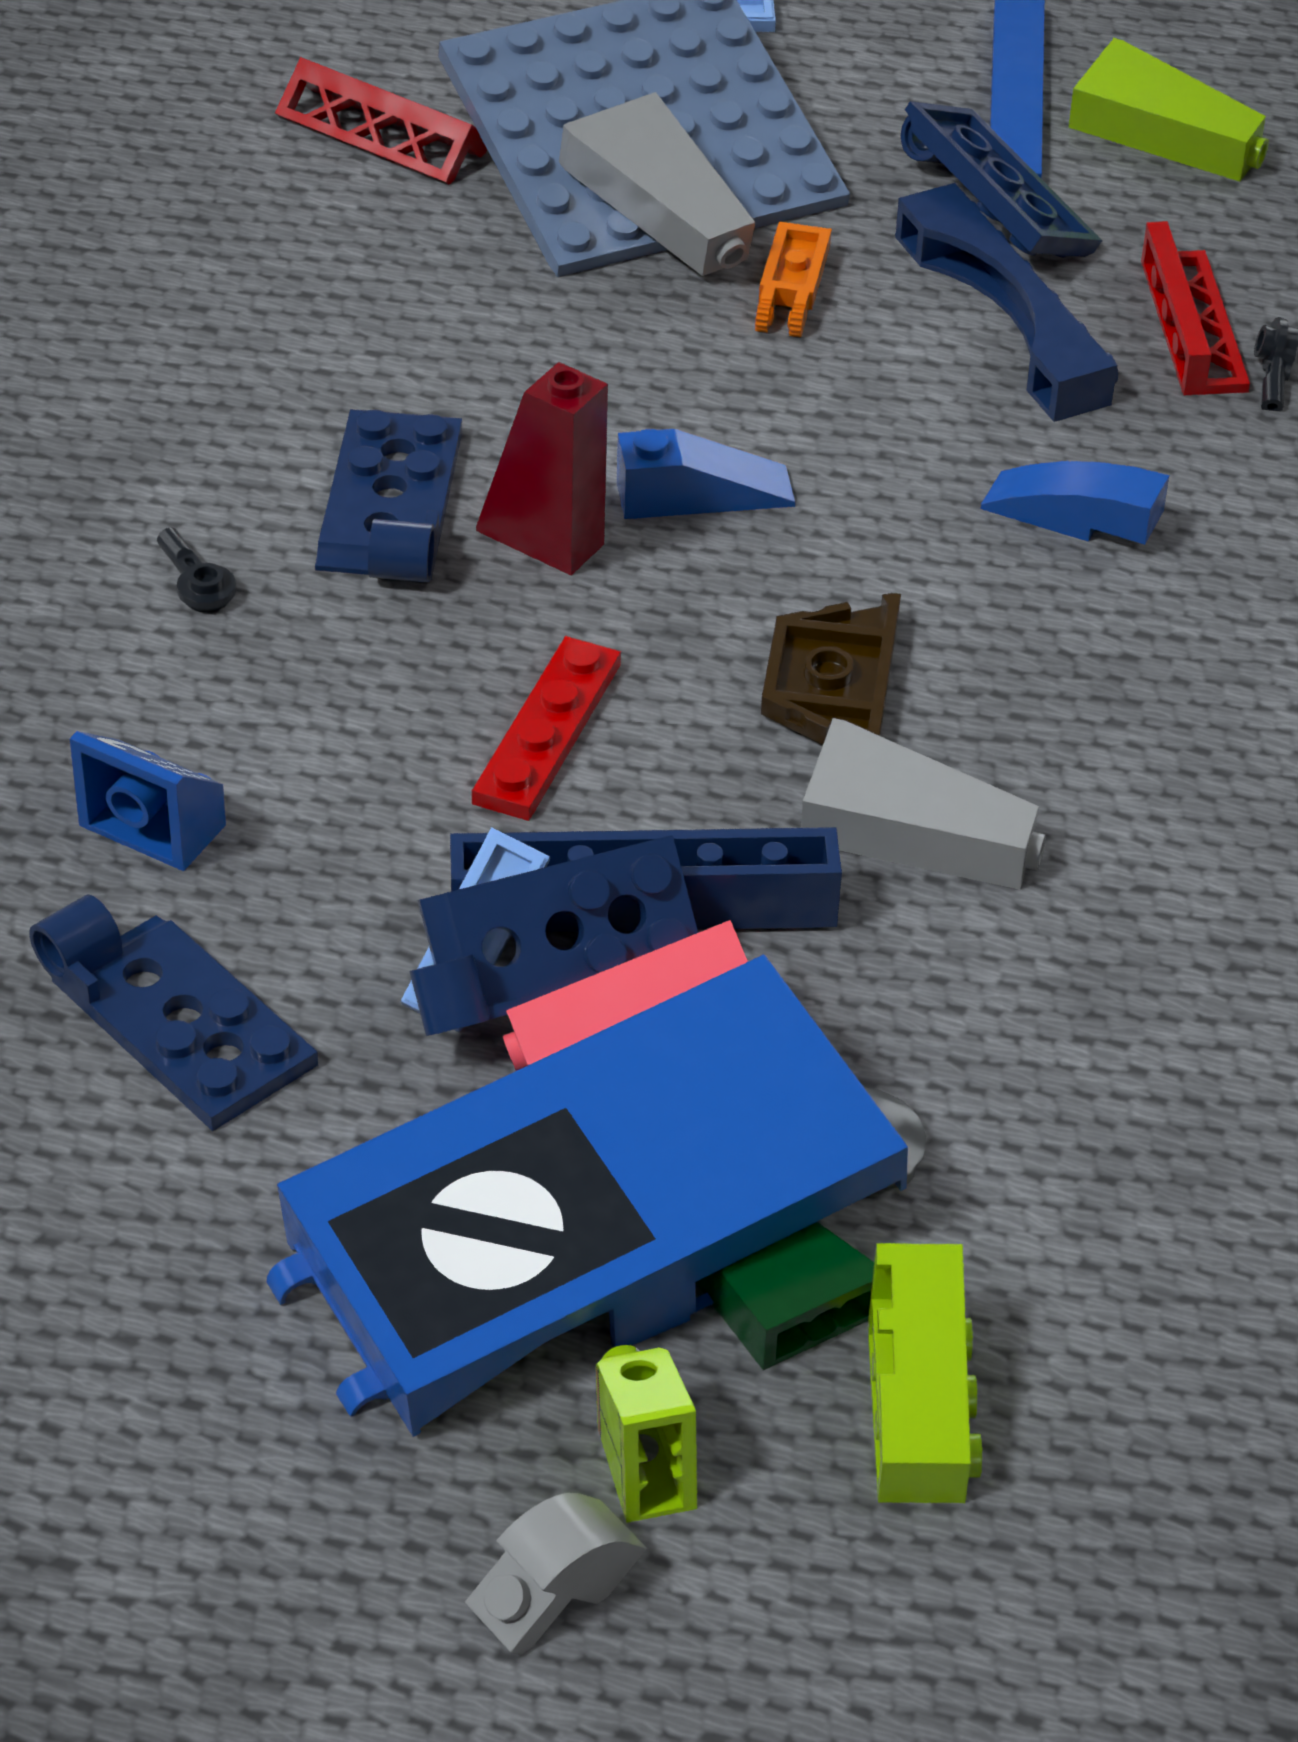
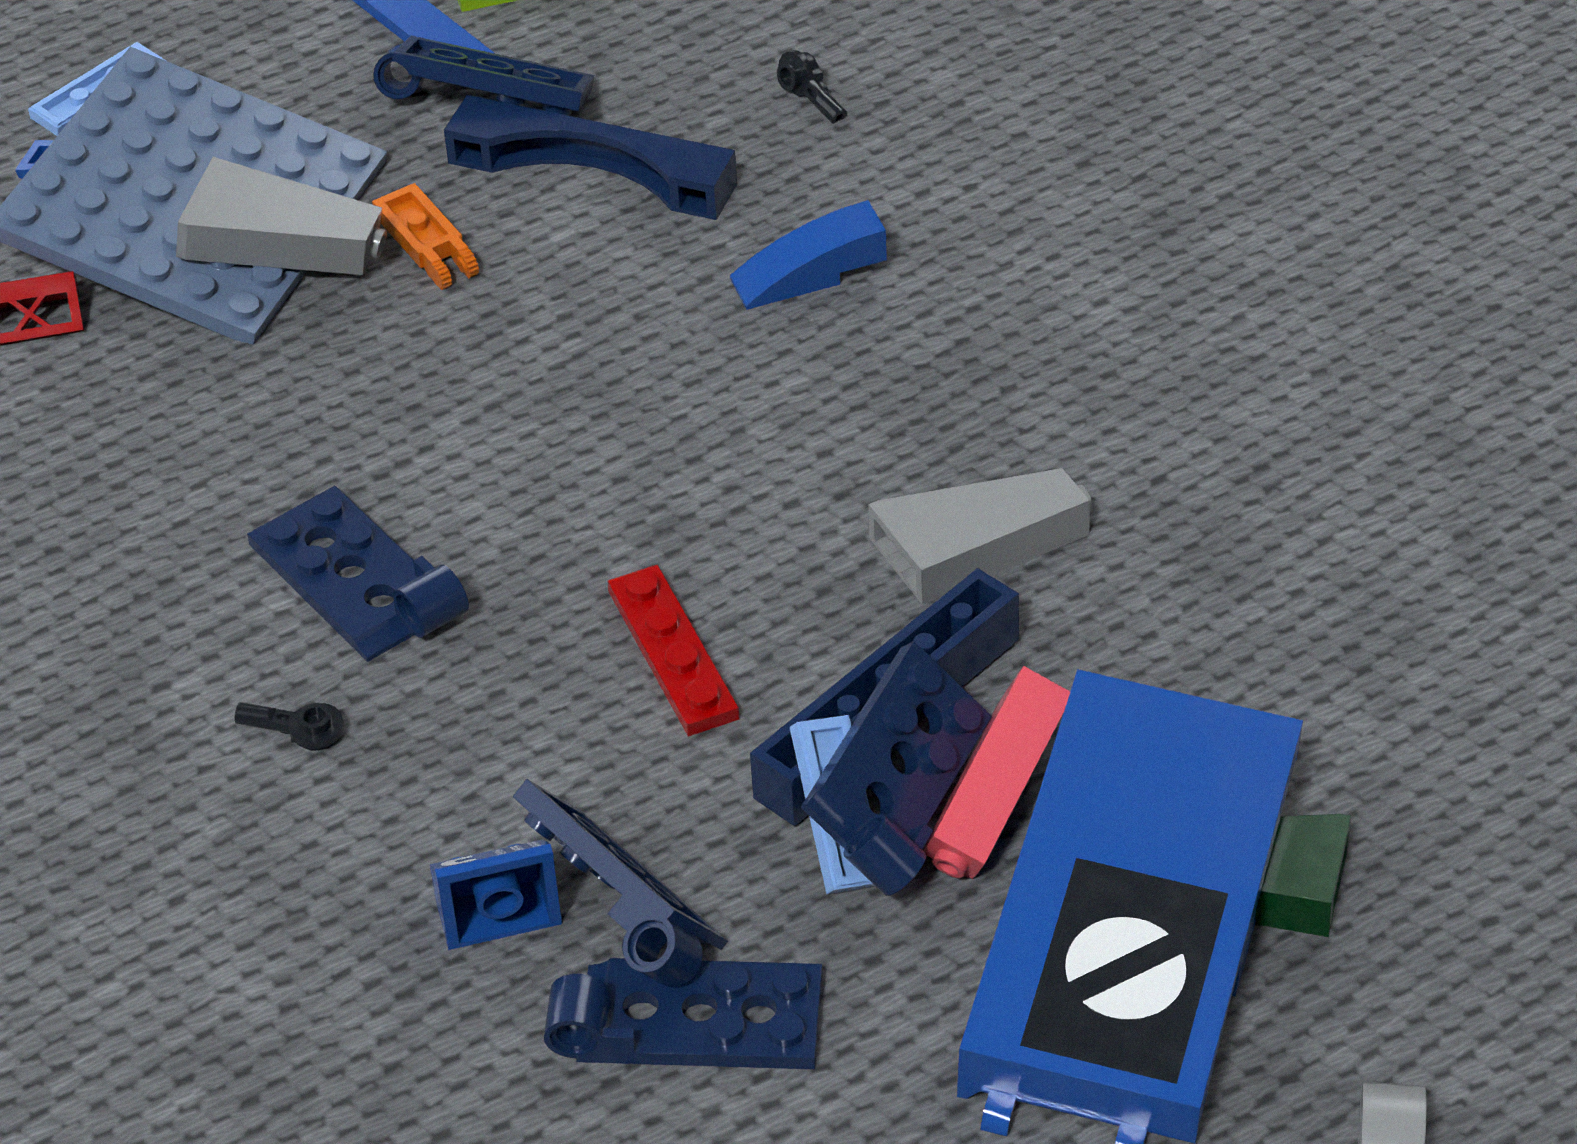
camera: 40 degrees left, 0 degrees up
(241, 865) = (646, 907): none -> dark blue hinge
(553, 472) = (491, 470): dark red slope -> none
(646, 1396) = (1335, 1015): lime torso -> none
(687, 475) = (546, 416): blue slope -> none
(831, 667) = (806, 478): dark brown wing -> none
(921, 1375) = (1439, 859): lime wedge -> none
(1181, 321) = (713, 89): red fence -> none

